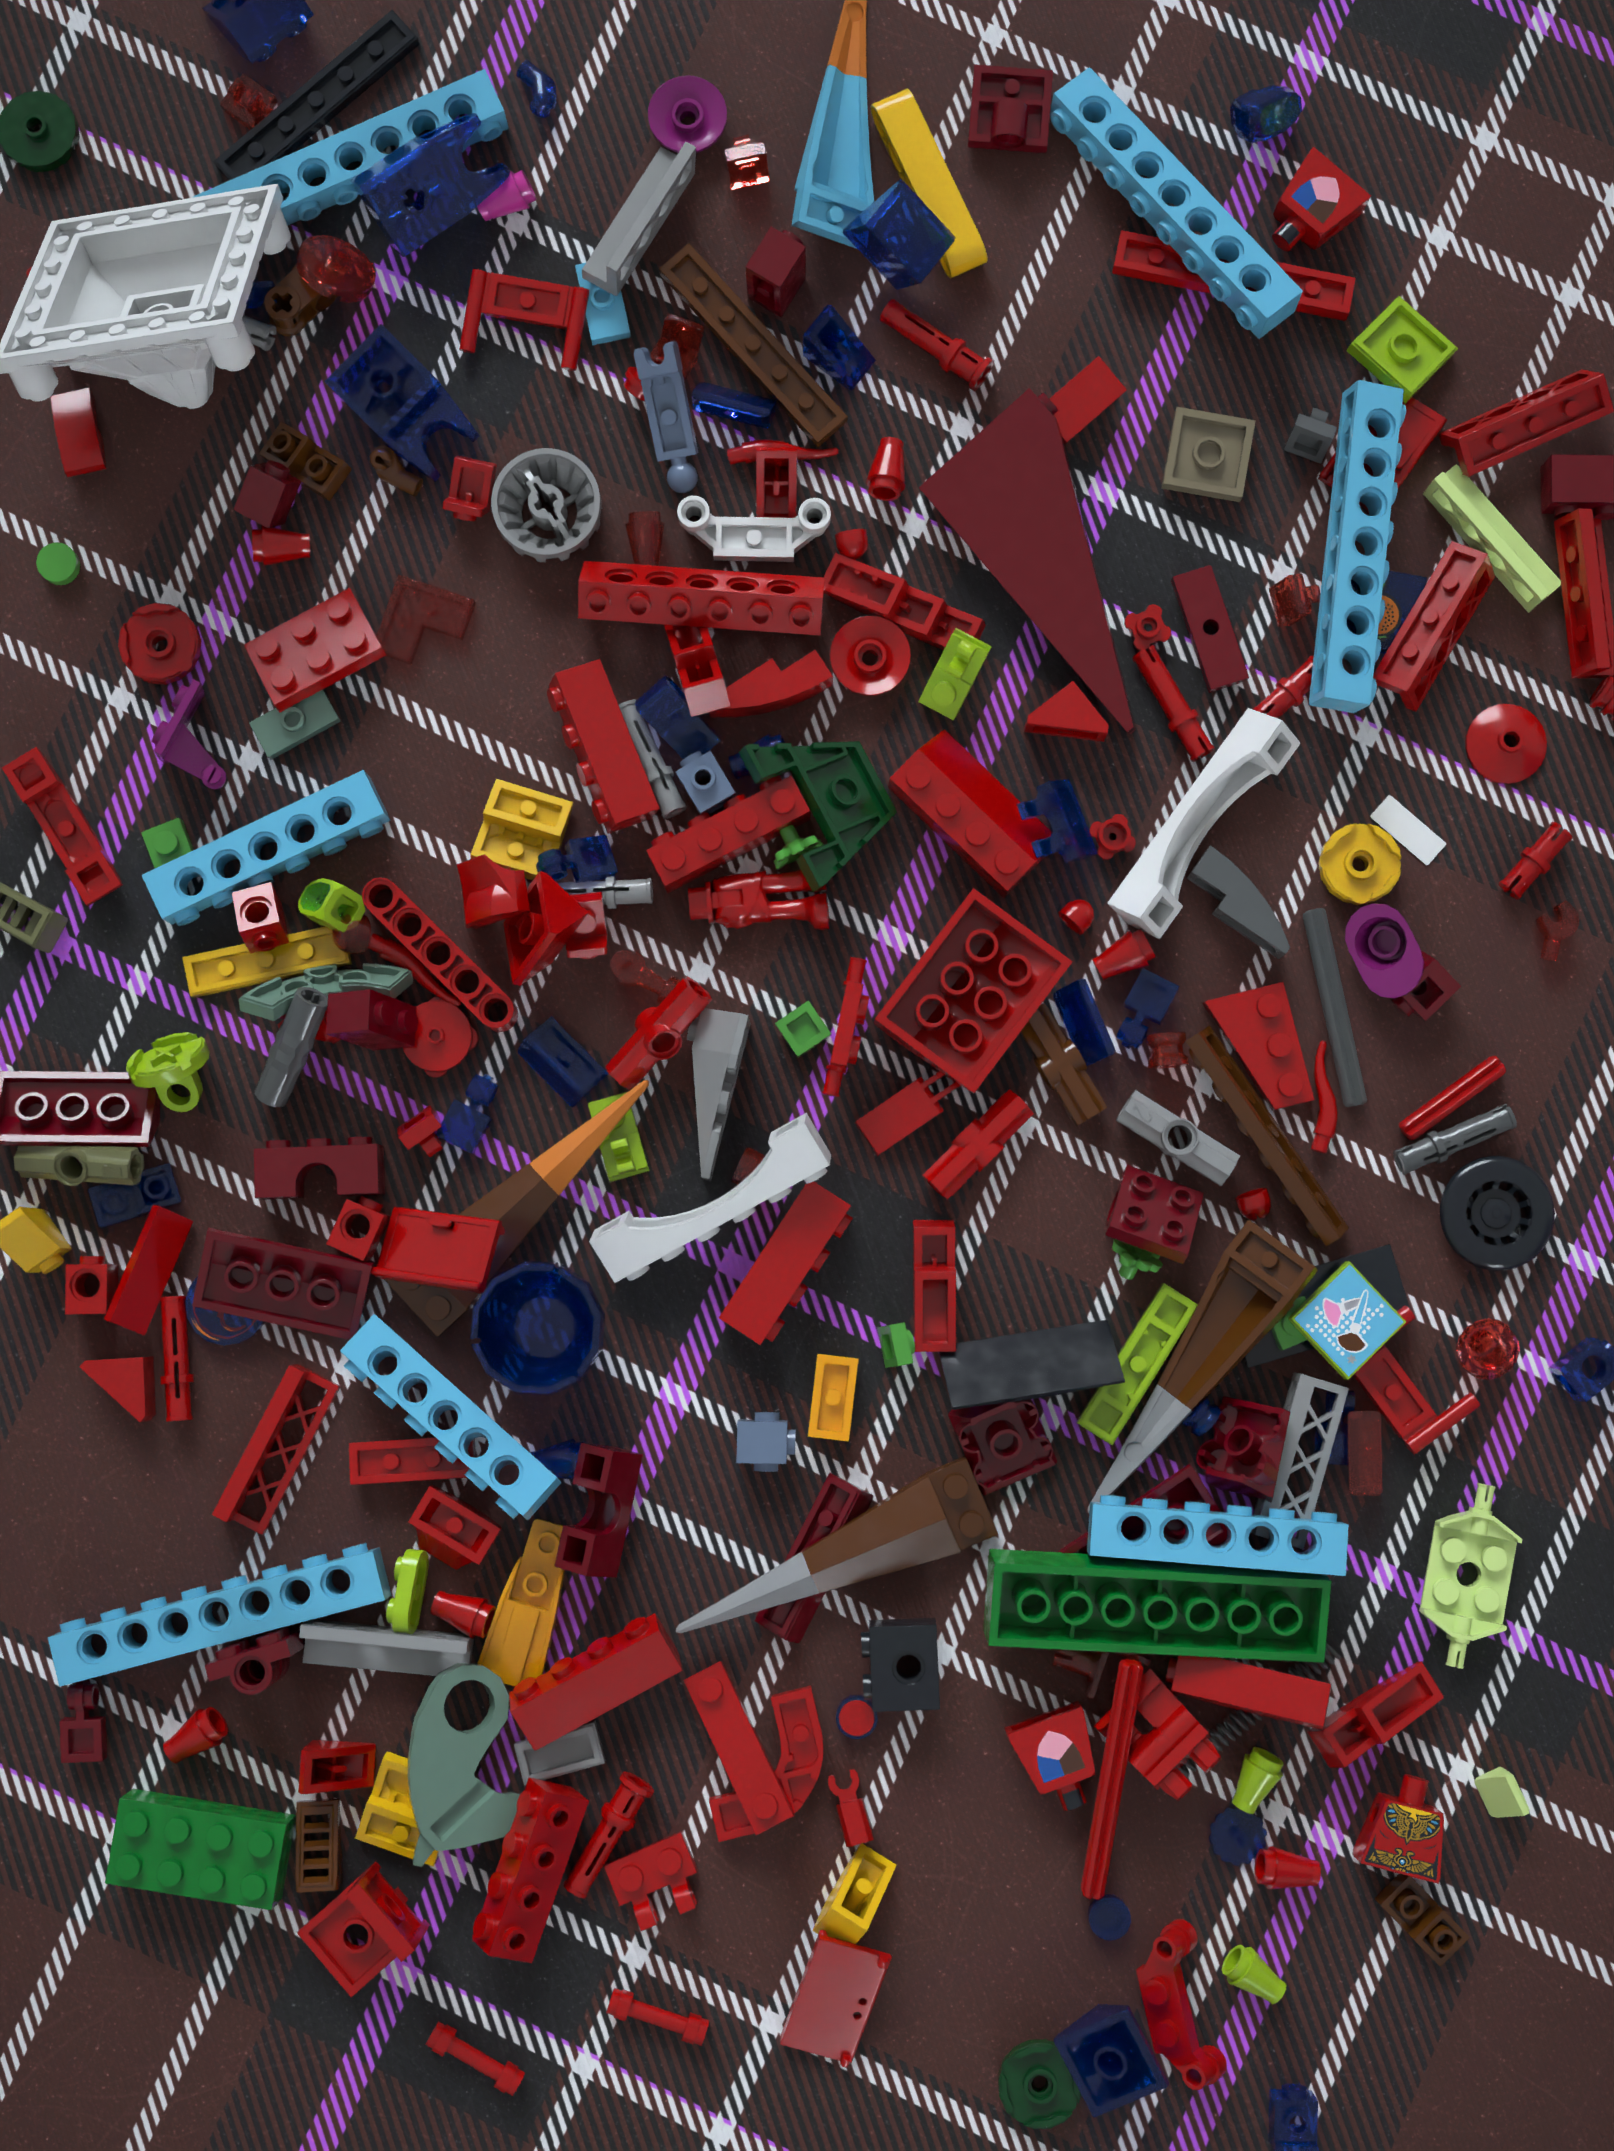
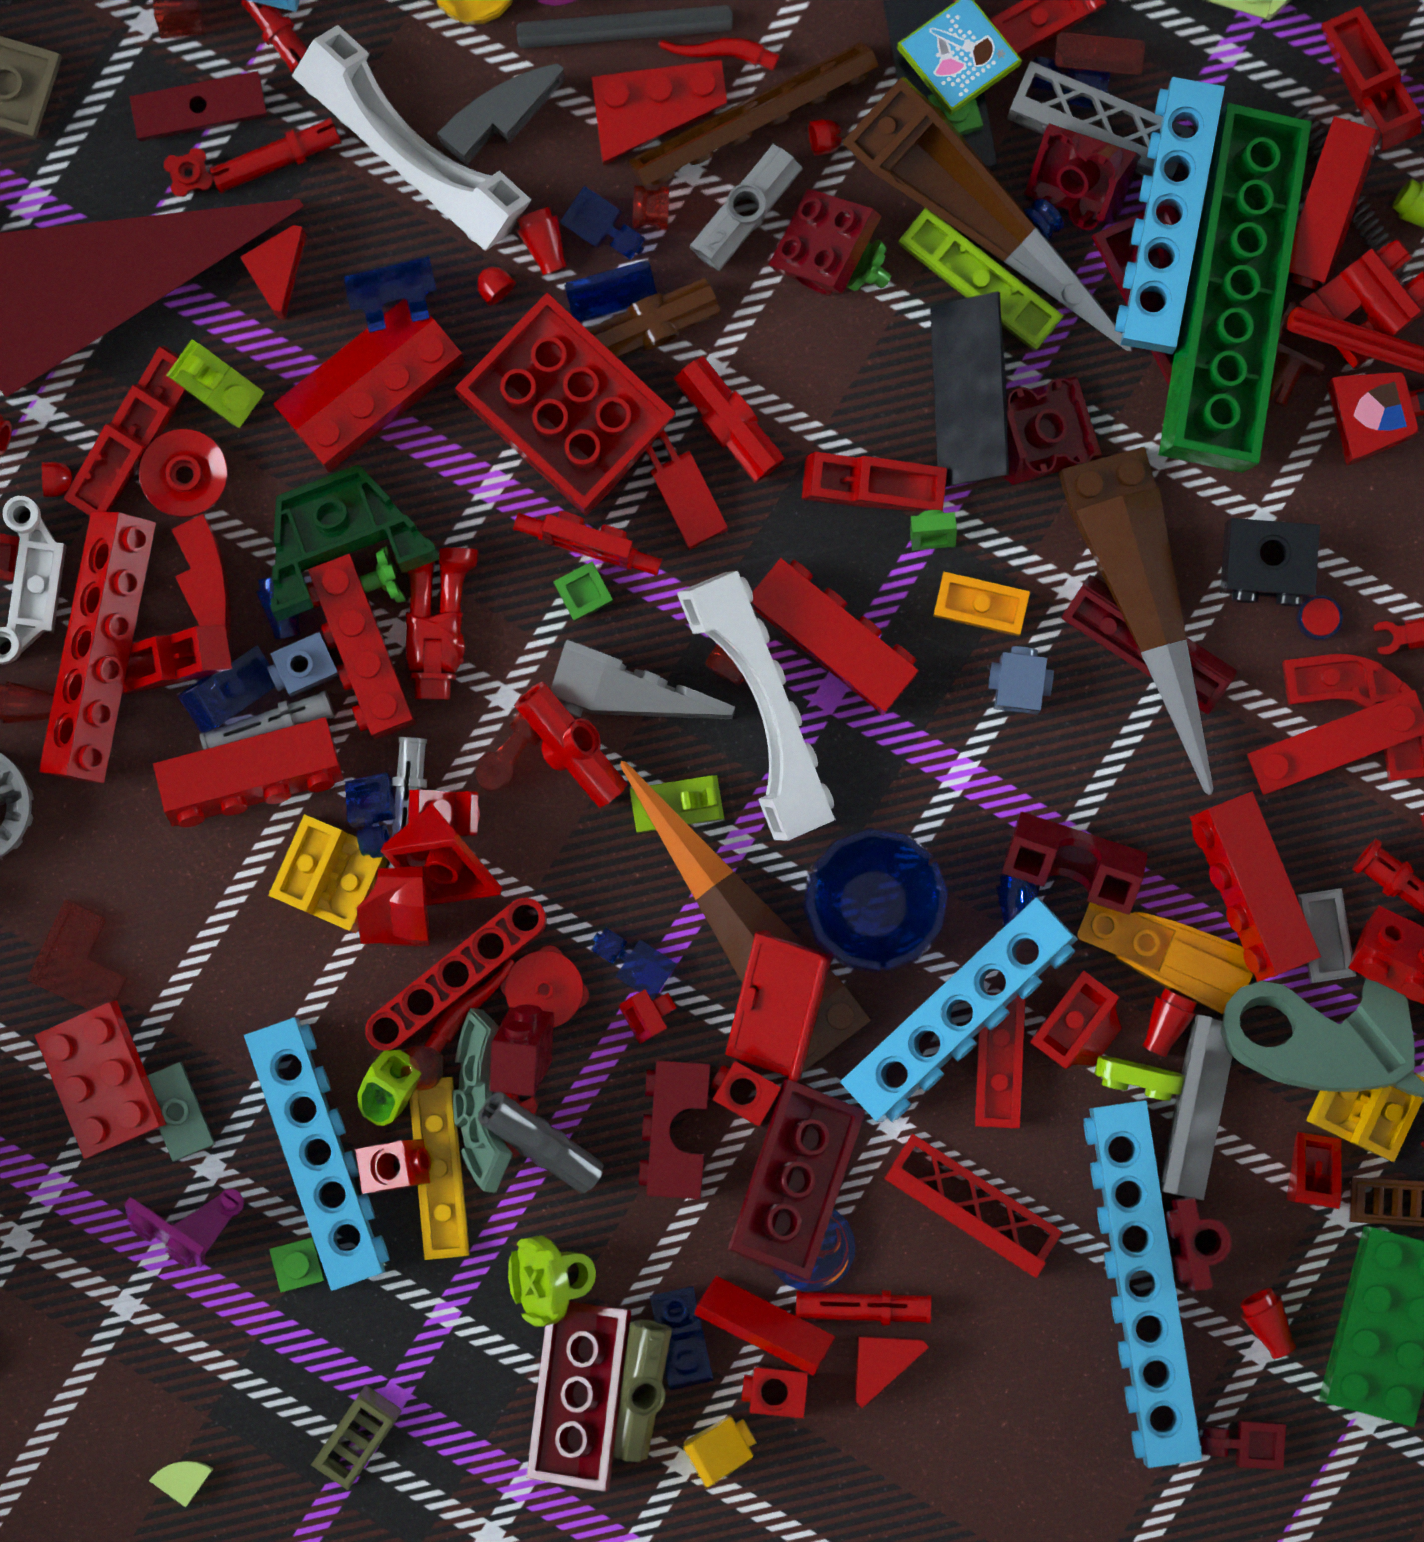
camera: 85 degrees left, 0 degrees up
(63, 825) = (264, 1377): red slope -> none
(146, 629) = (47, 1252): red plate -> none
(561, 1061) = (588, 857): clear blue slope -> none
(1117, 826) = (412, 226): red plate -> none

